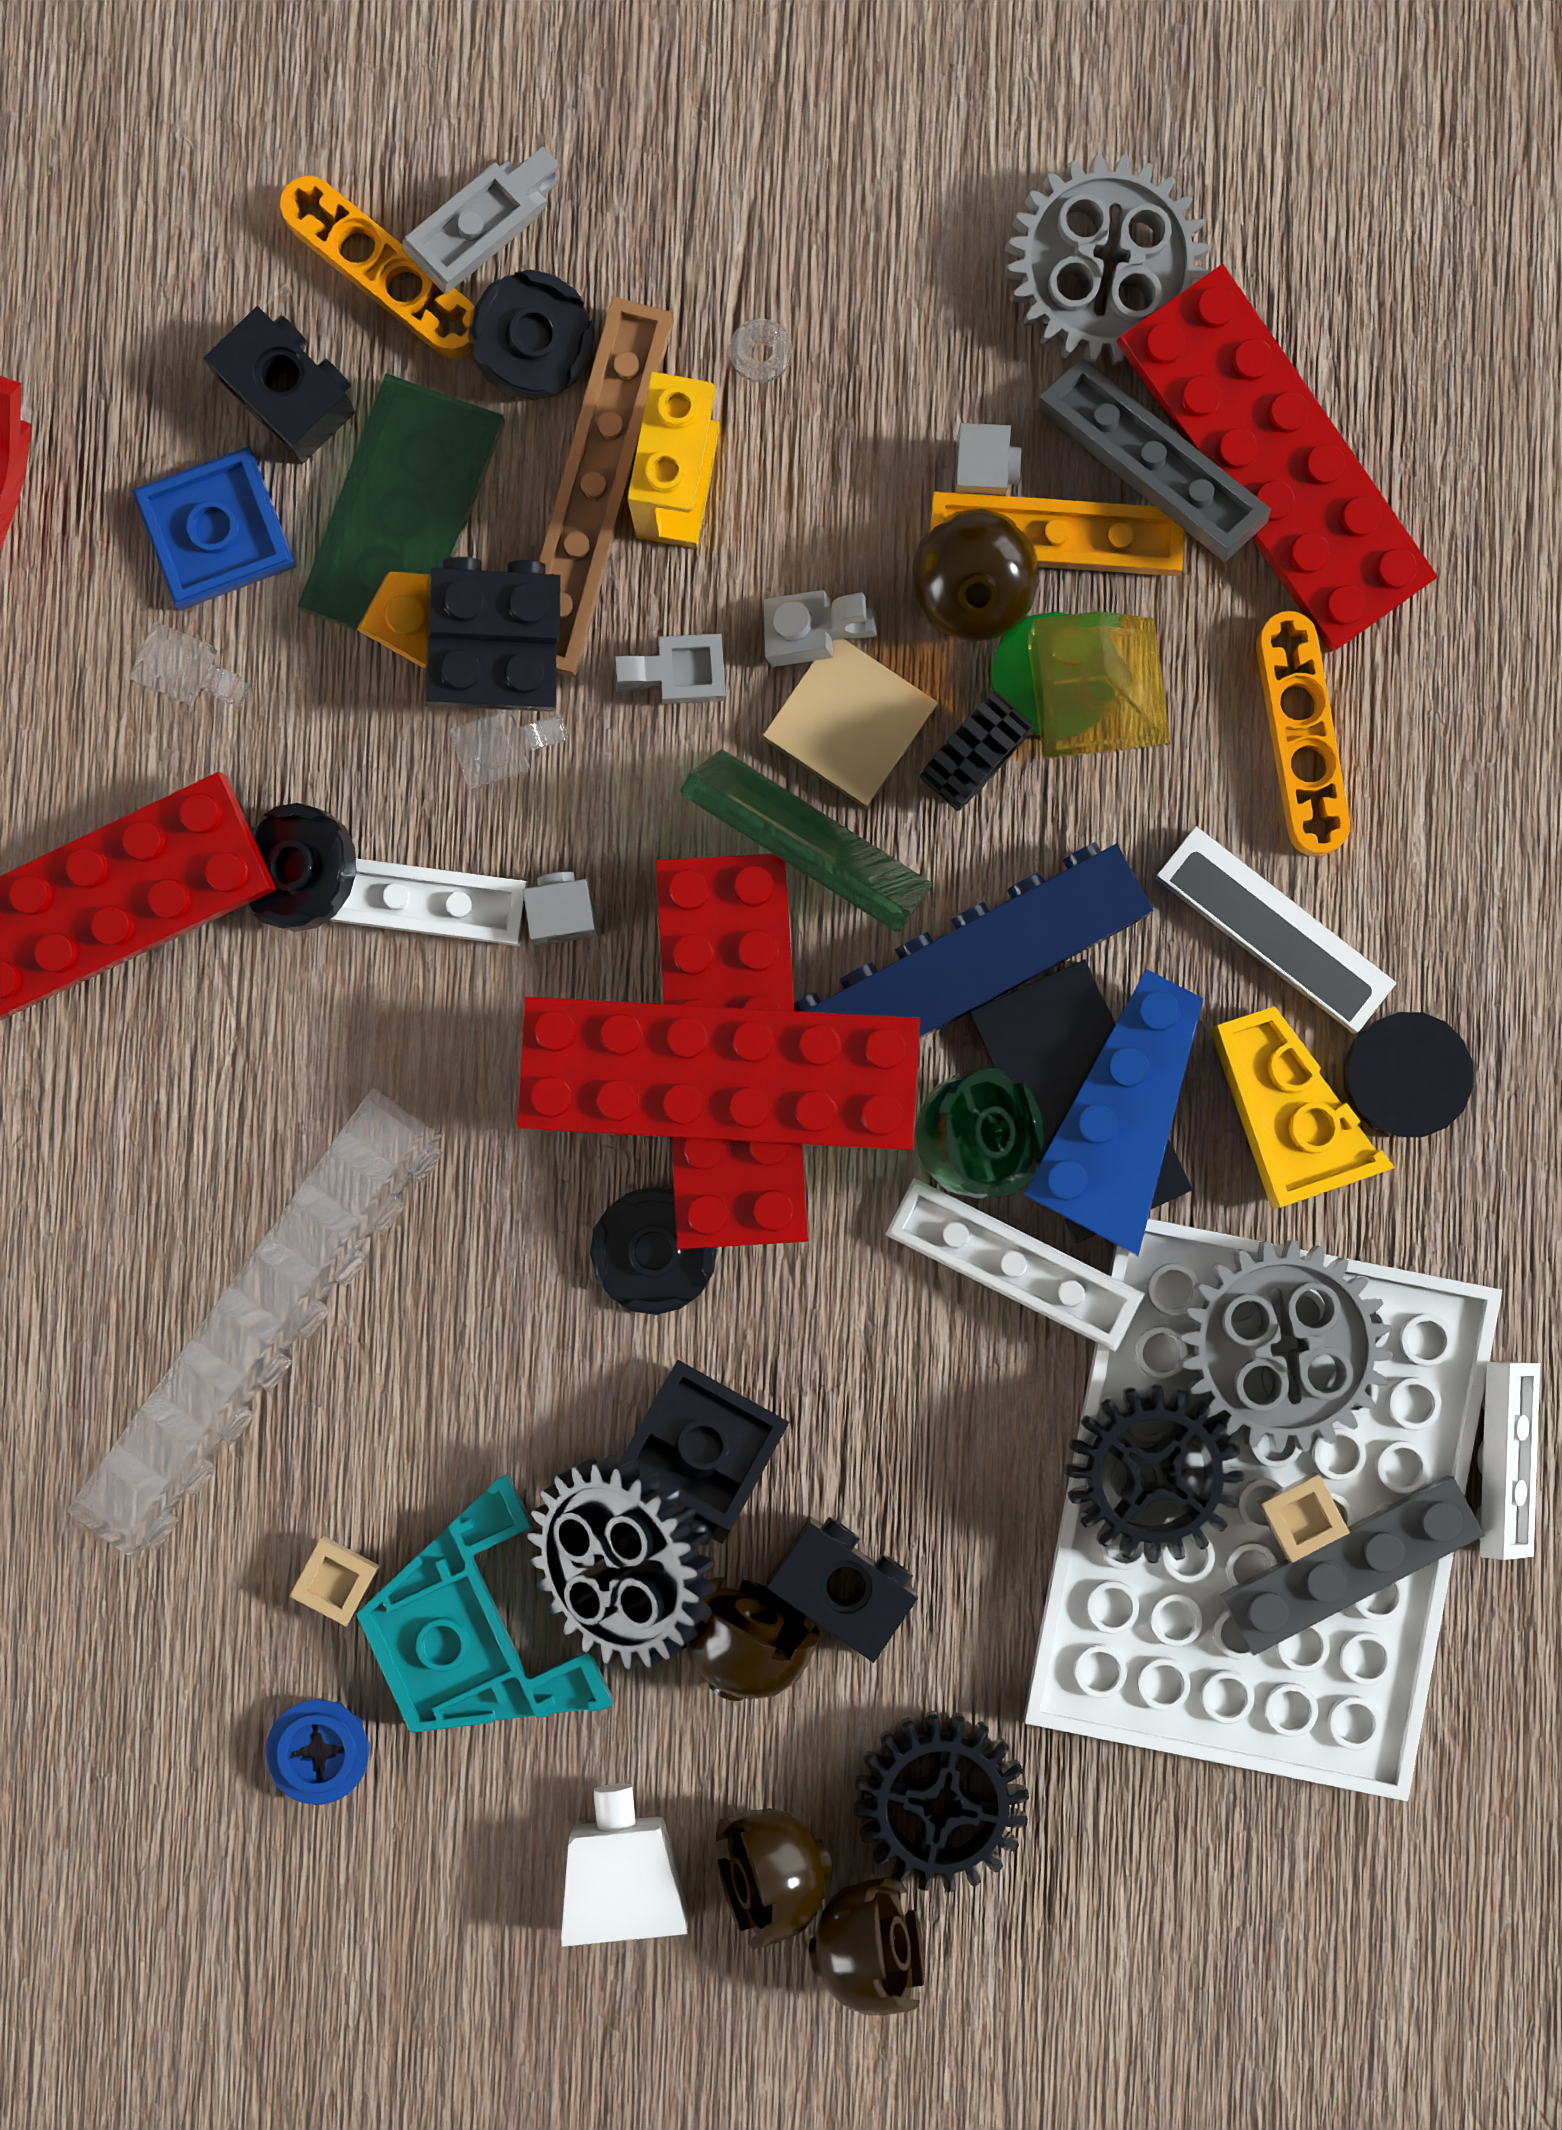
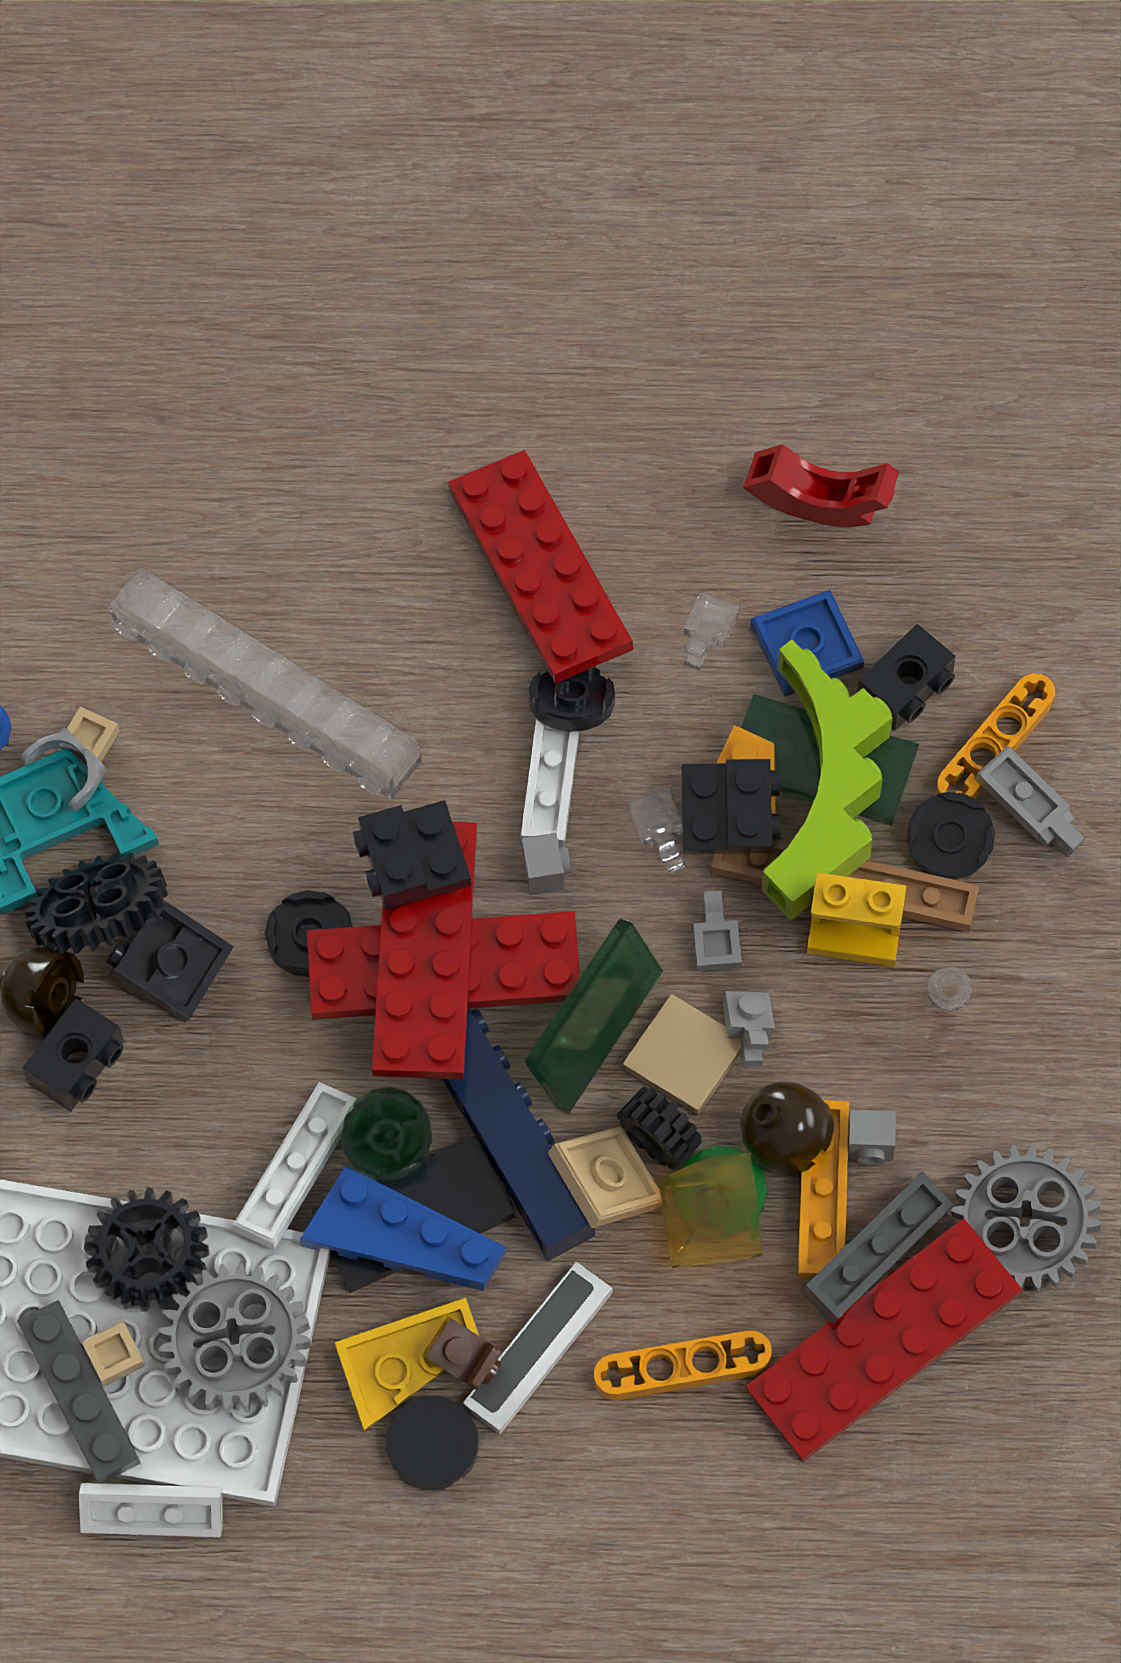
camera: 90 degrees right, 20 degrees down
(396, 1570) = (66, 740): none -> light grey cap
(452, 472) = (848, 782): none -> lime arch
(585, 1088) = (411, 854): none -> black plate
(1043, 829) = (606, 1176): none -> tan tile
(1303, 1026) = (463, 1354): none -> reddish brown bracket

